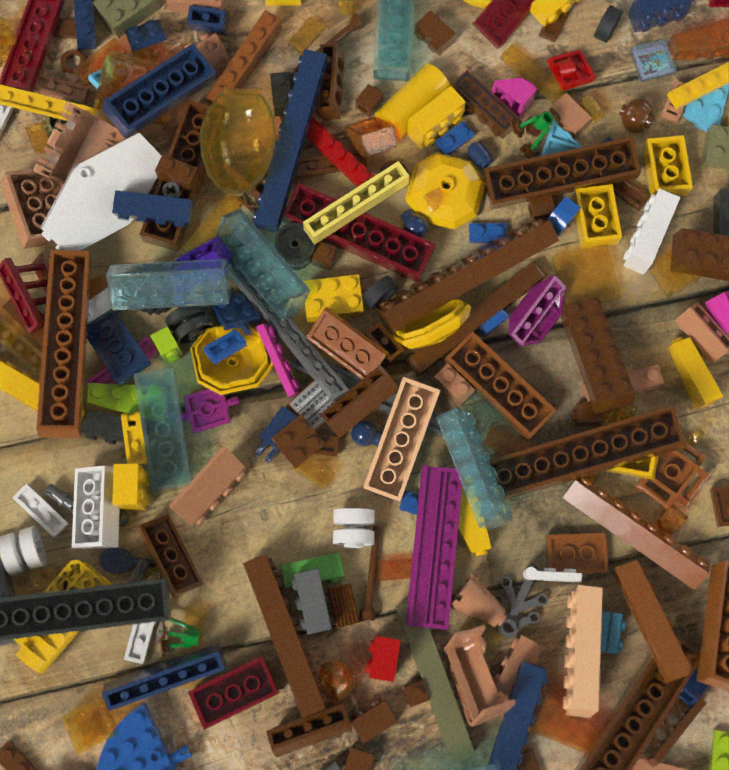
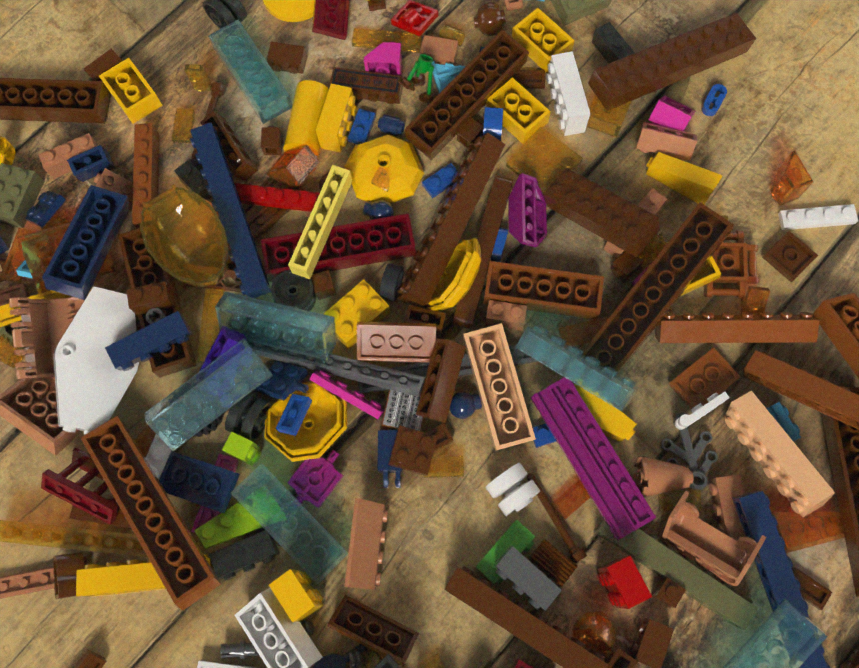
camera: 30 degrees left, 5 degrees down
(133, 439) = (270, 550): yellow plate -> none

